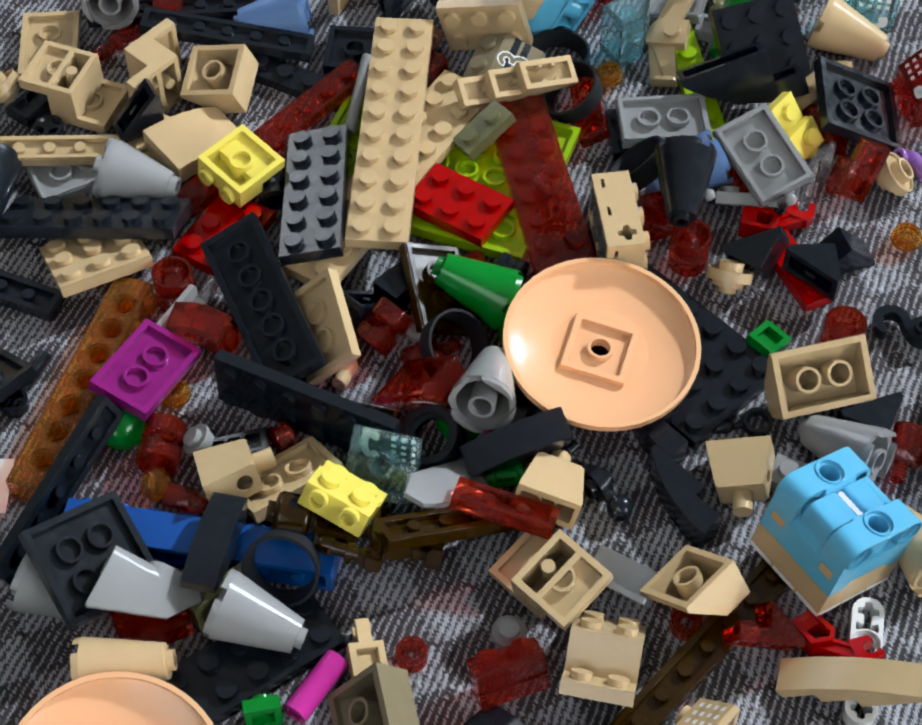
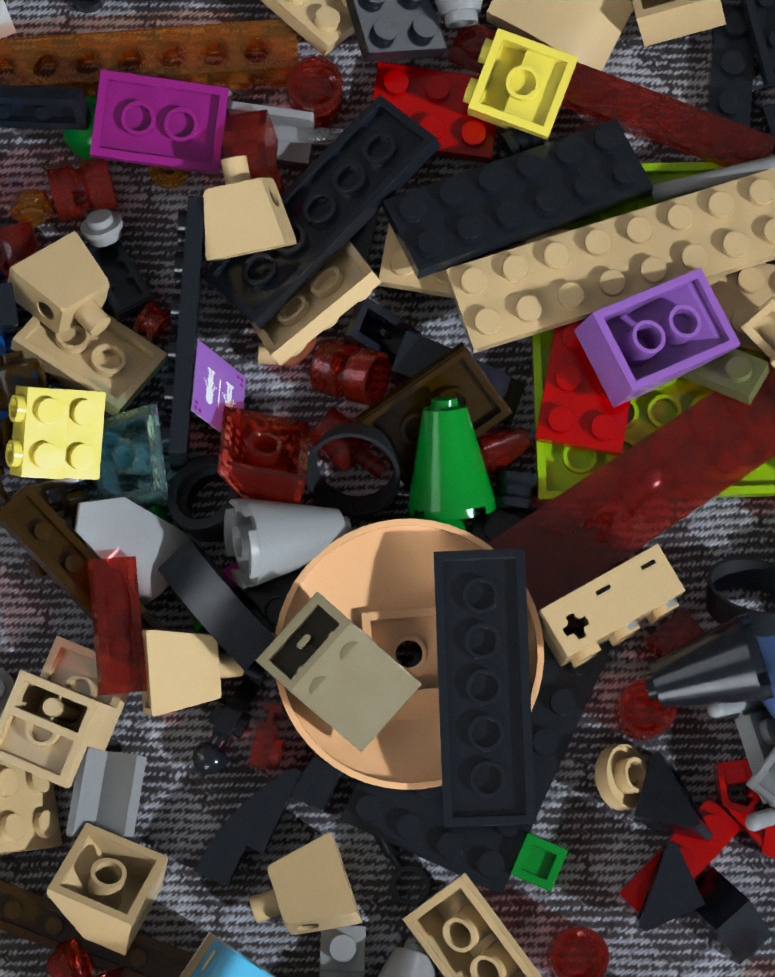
camera: 65 degrees right, 25 degrees up
(244, 330) = (244, 214): none -> tan torso
(451, 146) = (656, 336): none -> medium lavender slope
(596, 375) = (338, 671): none -> dark tan slope
(624, 456) = (267, 745): none -> clear red plate
(646, 299) = (484, 688): none -> black plate

